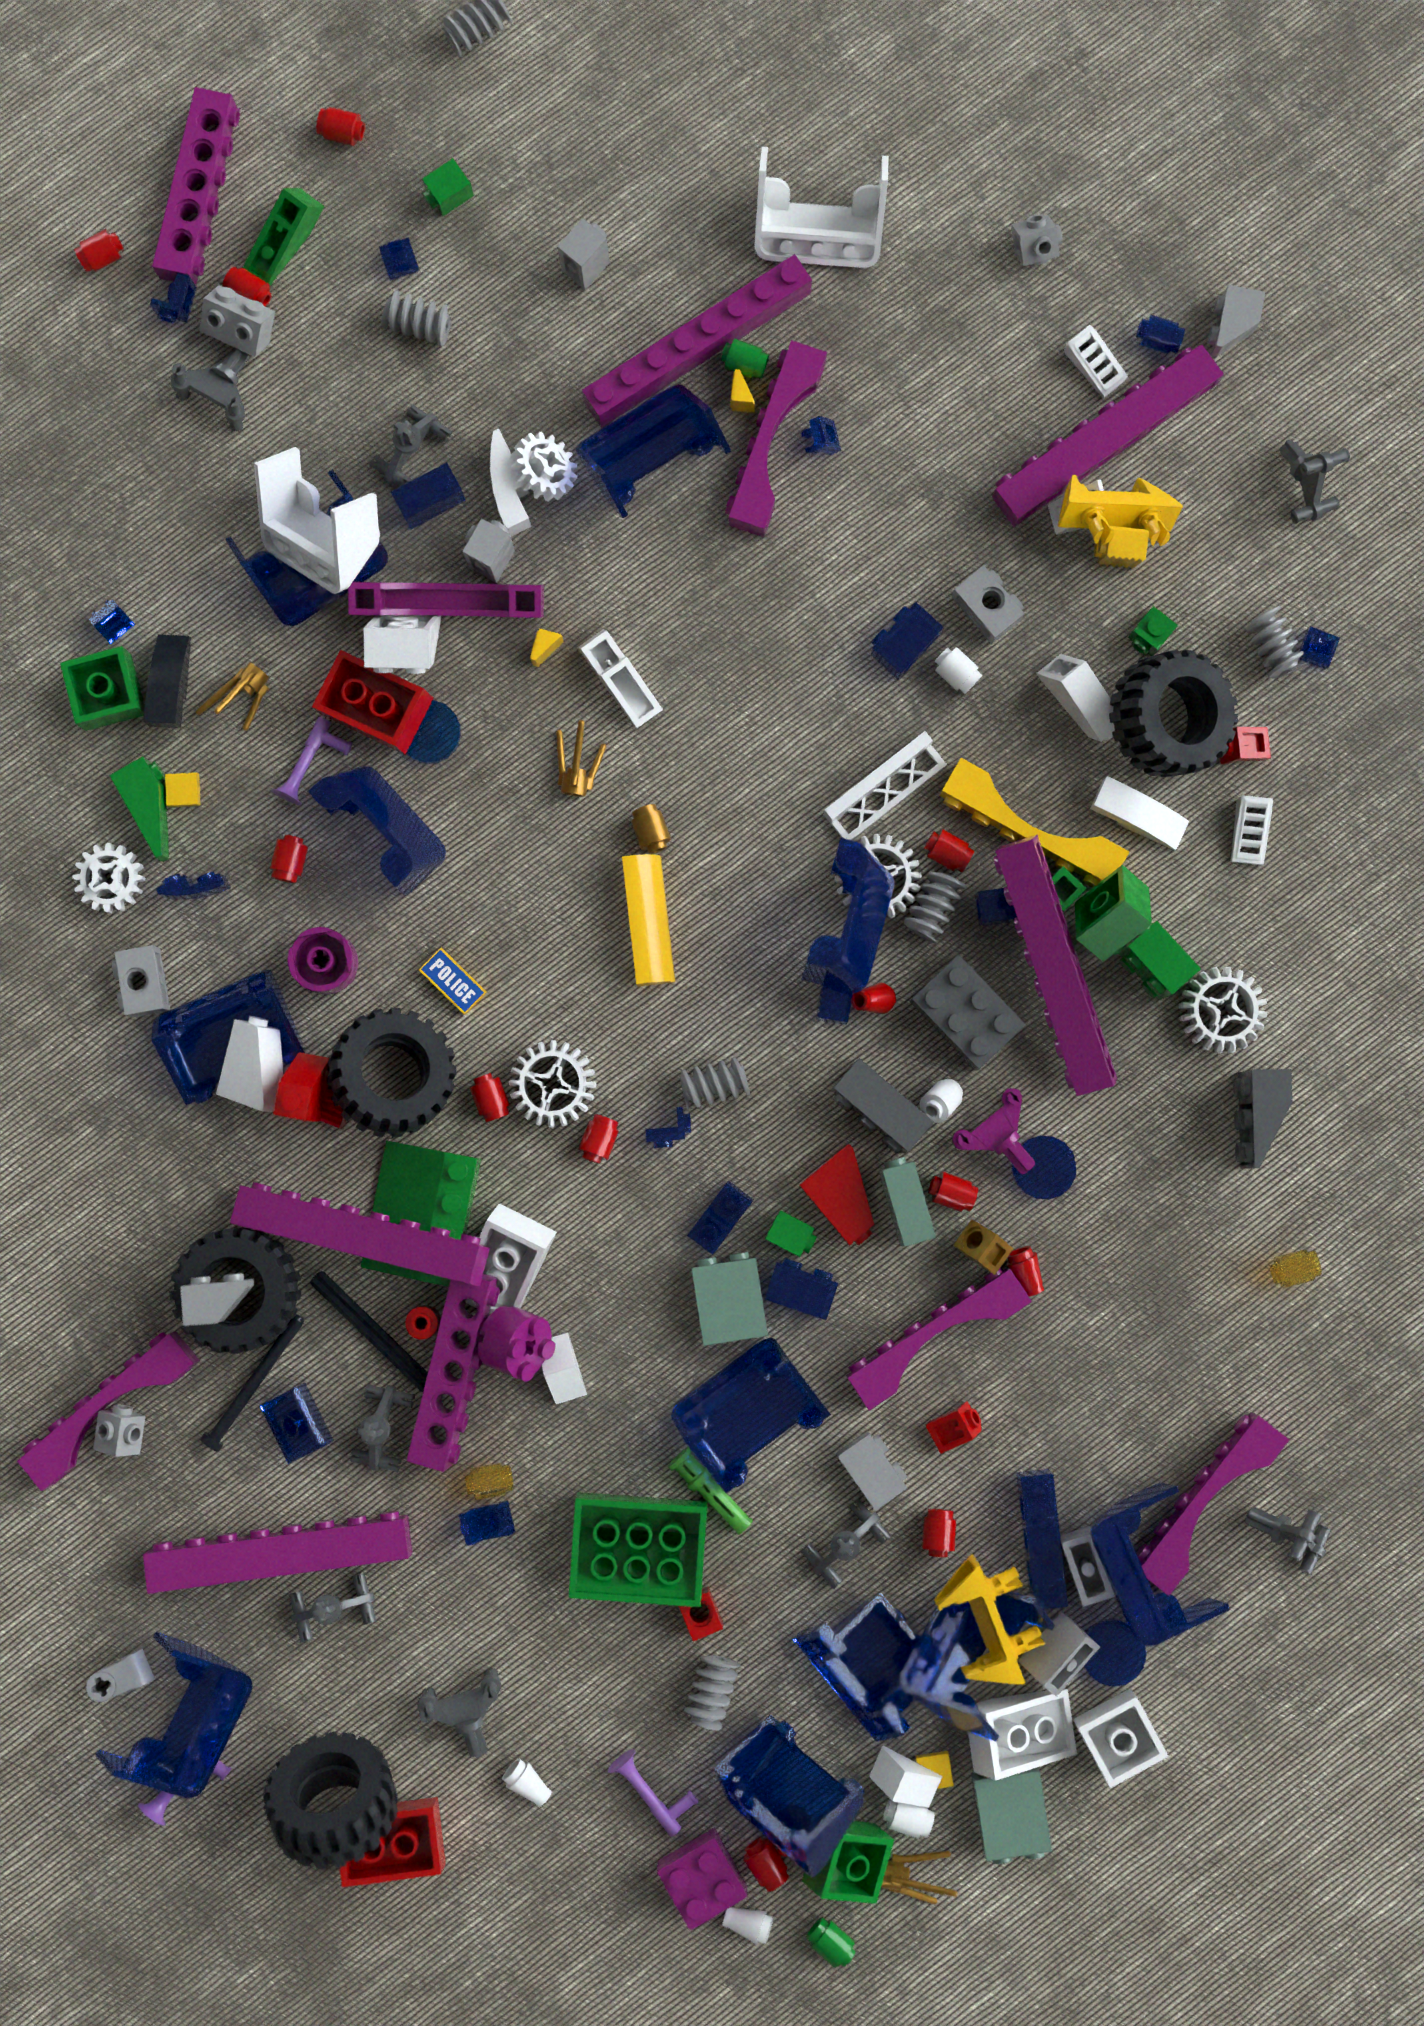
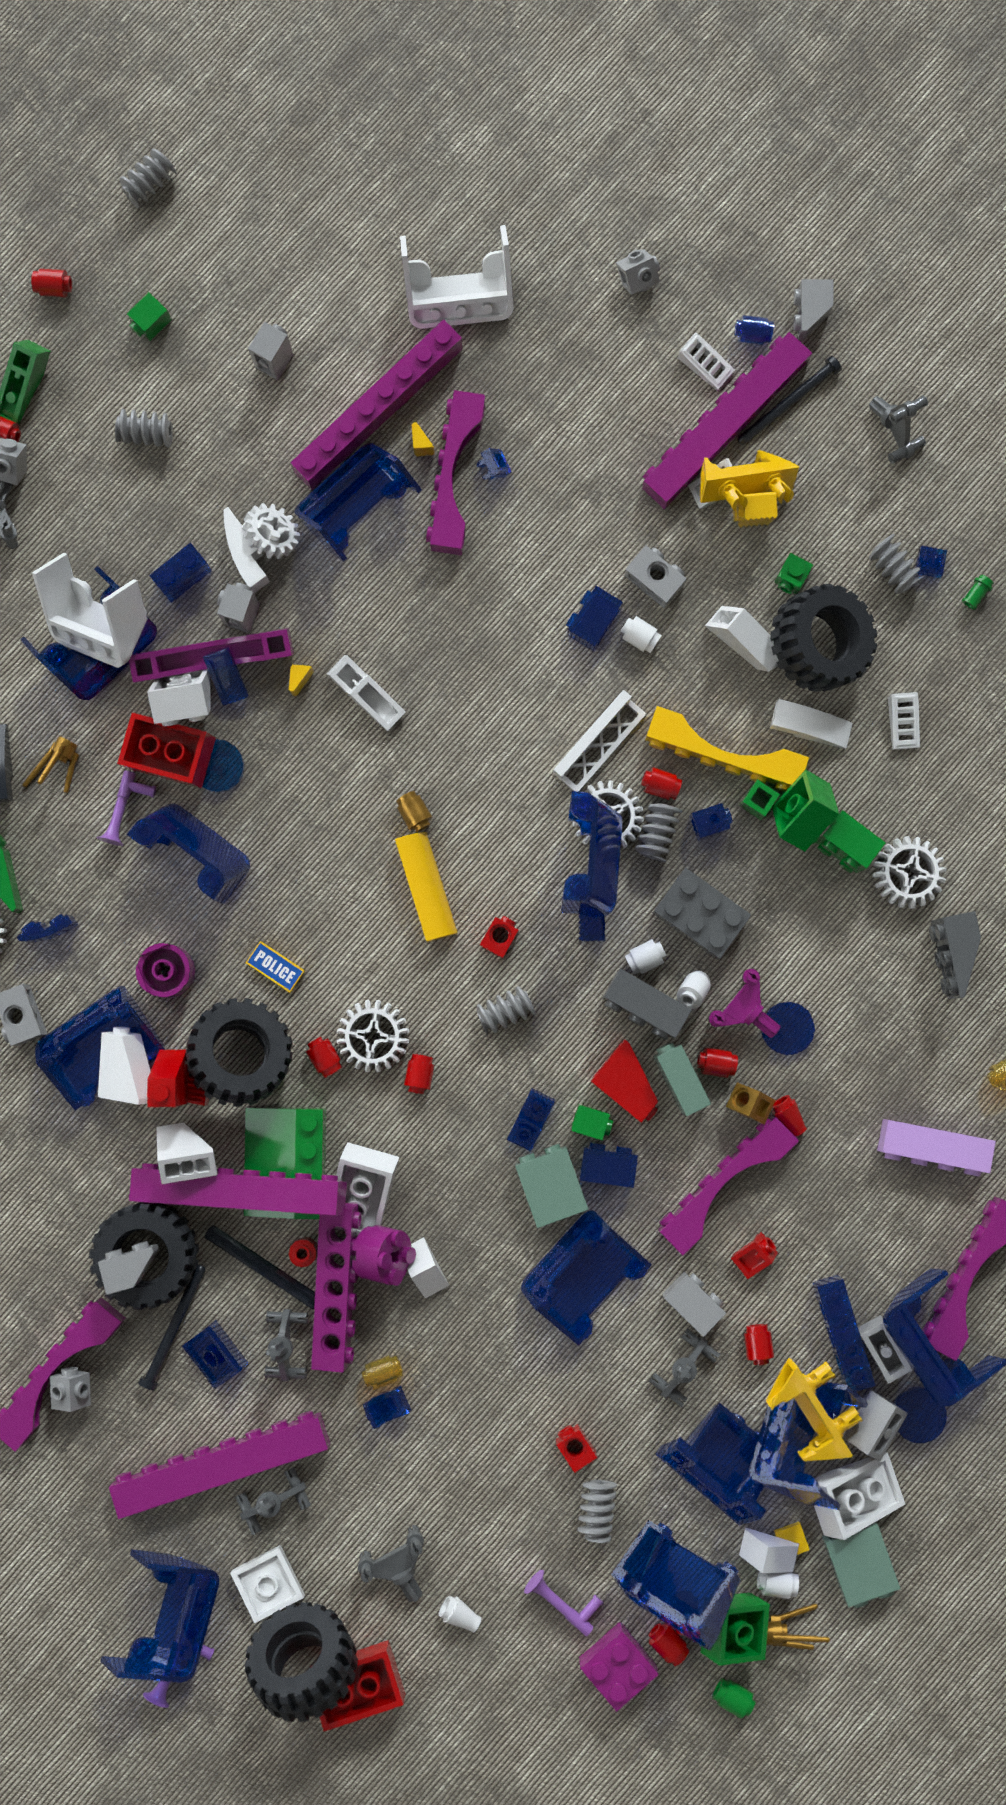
camera: 10 degrees left, 0 degrees up
(124, 1676) = (111, 1590): light grey piece -> none
(182, 789) = (23, 851): yellow tile -> none
(288, 859) = (121, 892): red brick -> none
(303, 1180) = (183, 1154): none -> white slope
(307, 1703) = (267, 1584): none -> white plate
(399, 258) = (120, 382): clear blue tile -> none
(407, 440) = (155, 530): dark grey axle -> none
(458, 627) = (225, 676): none -> clear blue tile
(575, 780) = (344, 784): pearl gold plant -> none
(638, 1549) = (515, 1405): green slope -> none
(665, 1136) = (472, 1062): clear blue bracket -> none
(700, 1480) = (556, 1339): bright green pin -> none
(720, 1009) = (491, 945): none -> red brick
(746, 358) = (419, 411): green brick -> none
(749, 1923) = (663, 1695): white cone -> none
(875, 999) = (624, 916): red cone -> none
(892, 1051) = (645, 956): none -> white brick
(1056, 966) = (767, 862): magenta brick -> none
(1120, 1738) = (938, 1484): white brick -> none
(1194, 1339) = (936, 1146): none -> lavender brick
(1244, 395) = (832, 366): none -> black bar
(1248, 745) = (889, 651): bracket -> none
(1367, 693) = (978, 591): none -> green pin

